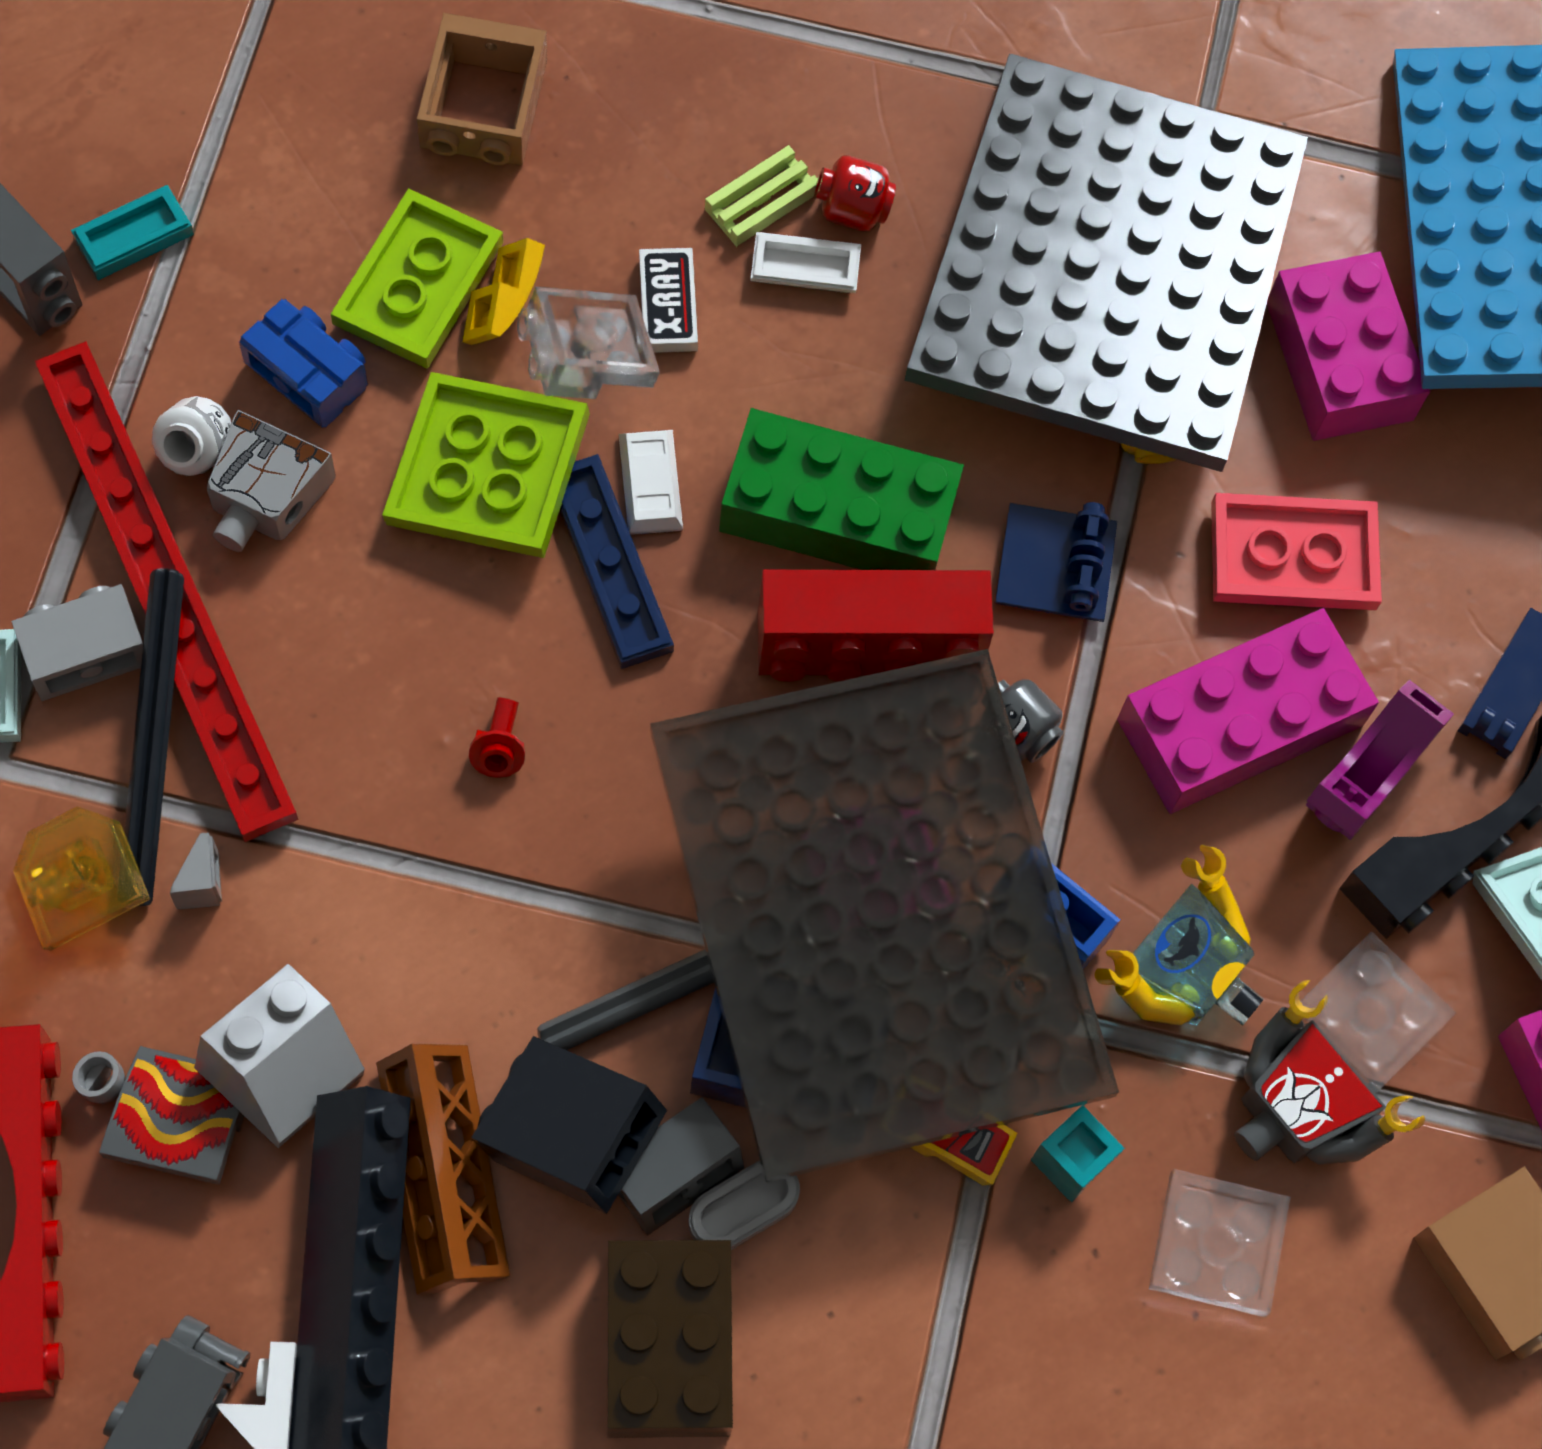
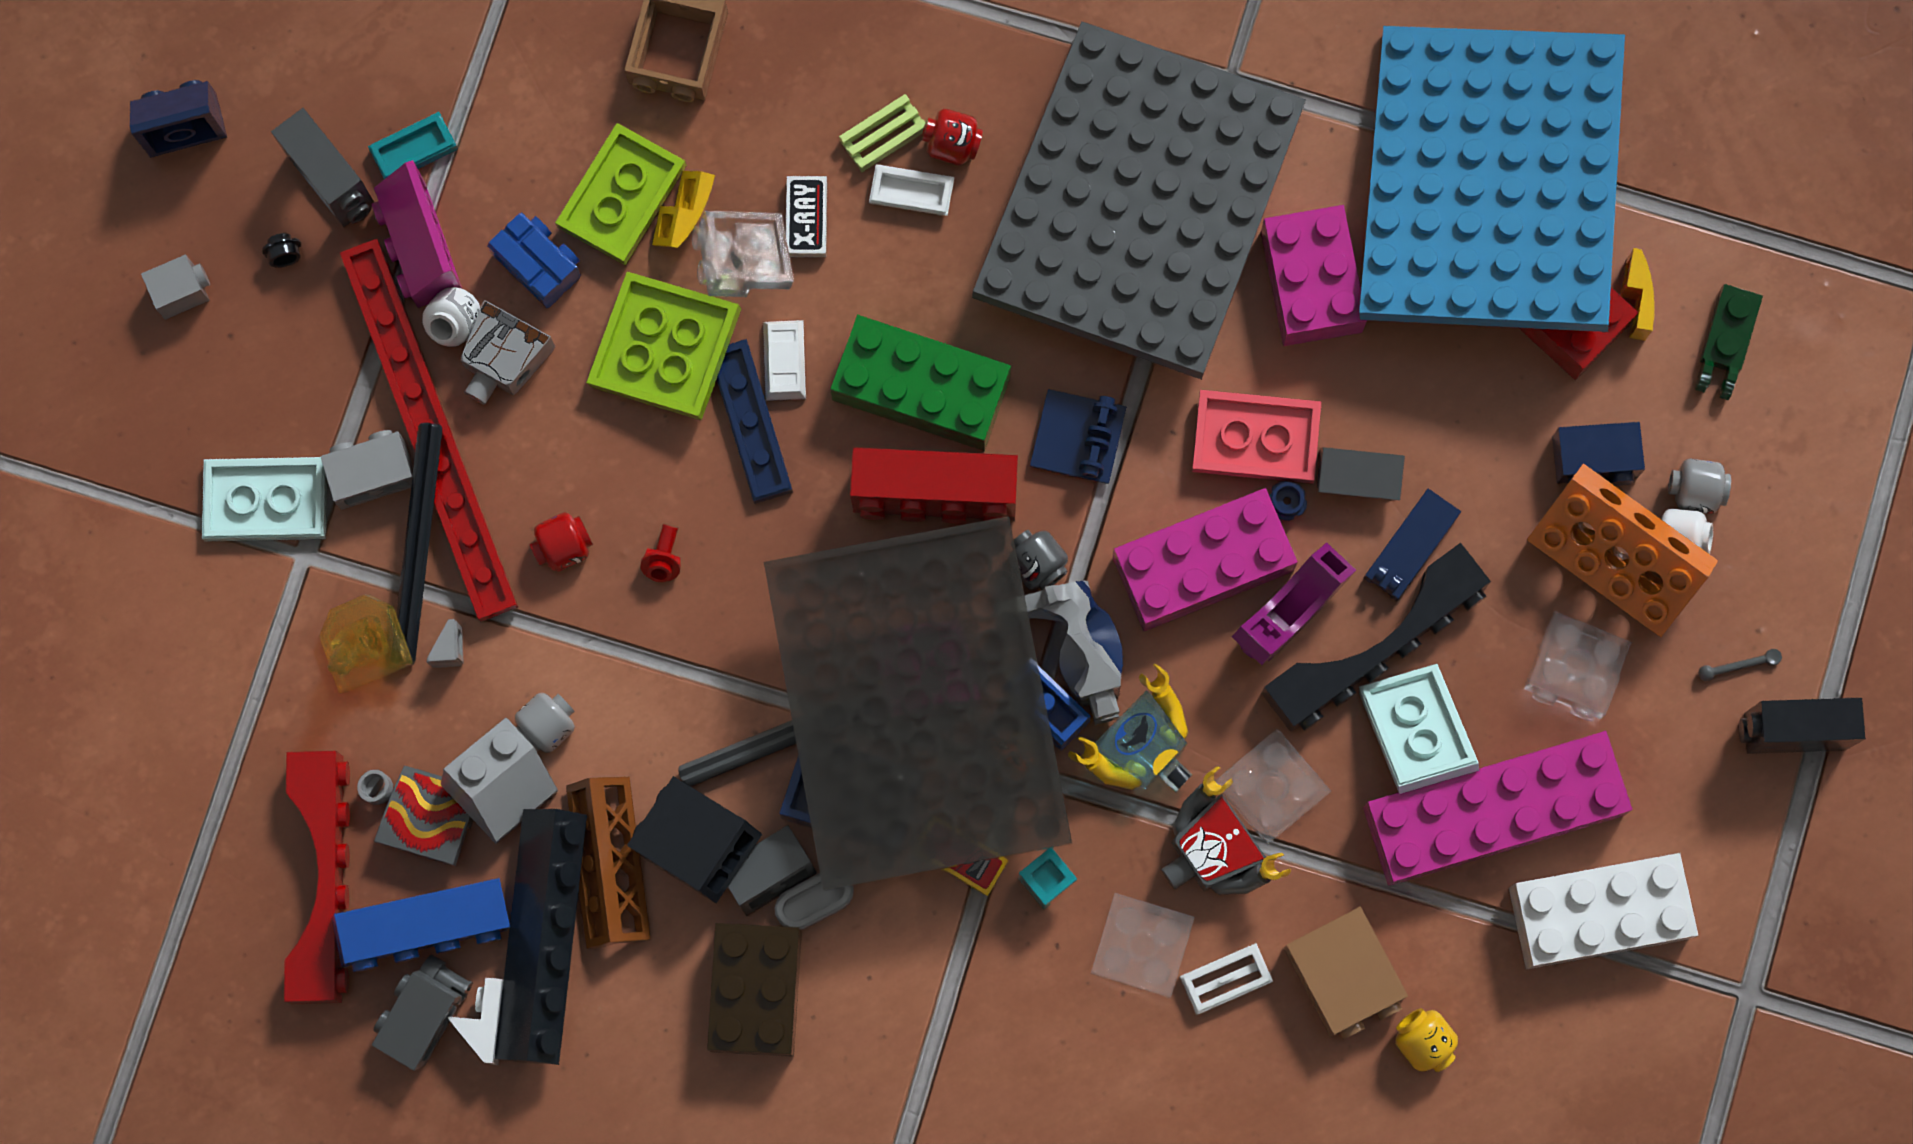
camera: 15 degrees right, 10 degrees up
(137, 329) = (415, 235): none -> dark pink slope
(170, 1267) = (420, 923): none -> blue brick
(345, 971) = (545, 721): none -> light grey head
(356, 726) = (561, 542): none -> red head
(1109, 838) = (1091, 650): none -> light grey hips
(1298, 1308) = (1193, 993): none -> white tile
(1356, 623) = (1295, 493): none -> dark blue plate
(1441, 588) = (1360, 473): none -> dark grey hinge

